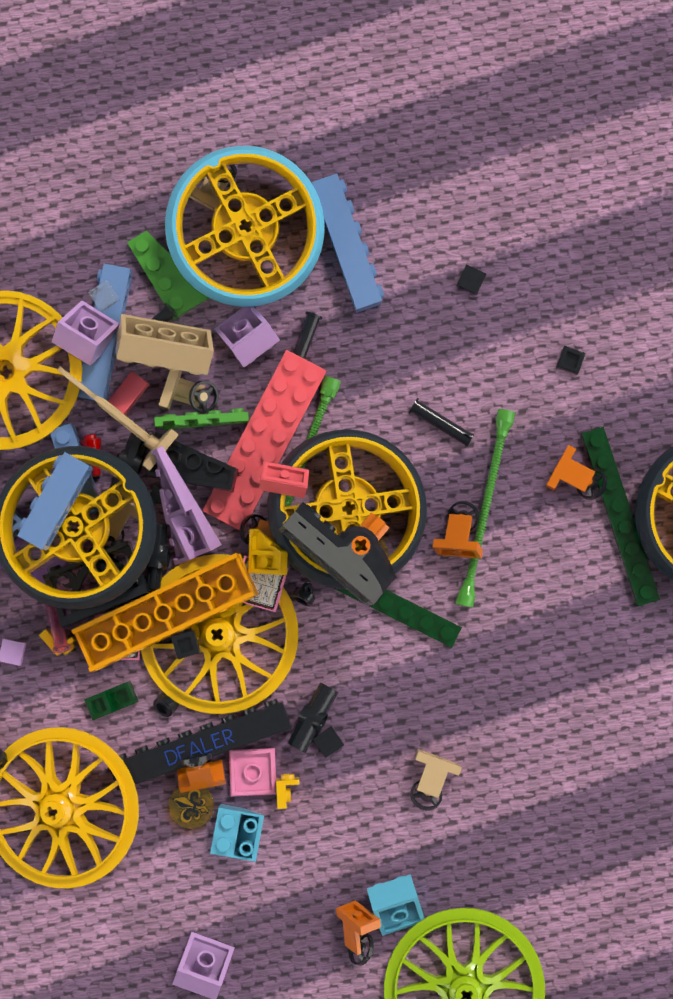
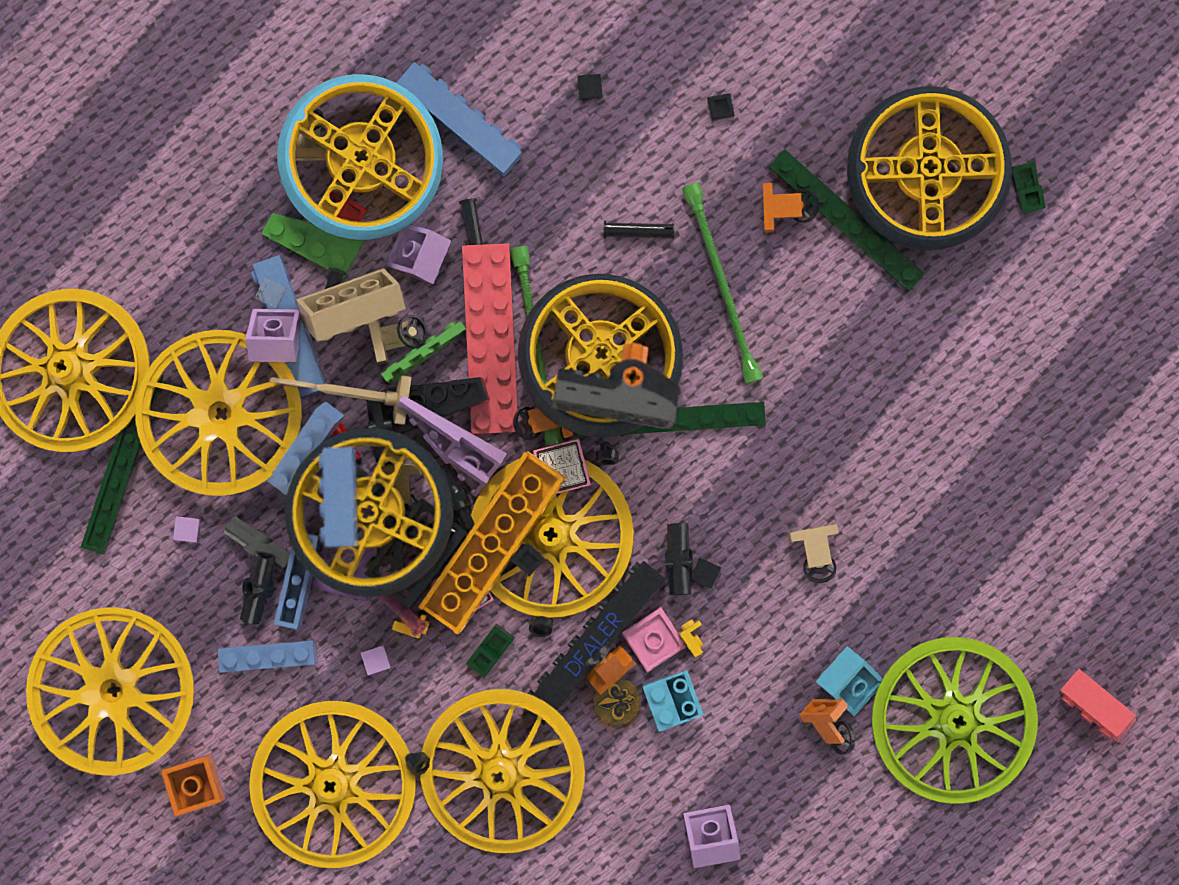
camera: 30 degrees left, 0 degrees up
(72, 433) = (316, 431): none -> medium blue arch
(128, 393) = (342, 366): coral slope -> none
(212, 266) = (351, 210): none -> red plate
(265, 555) = (552, 438): yellow wing -> none
(284, 479) = (530, 360): coral slope -> none
(457, 534) = (711, 320): orange piece -> none

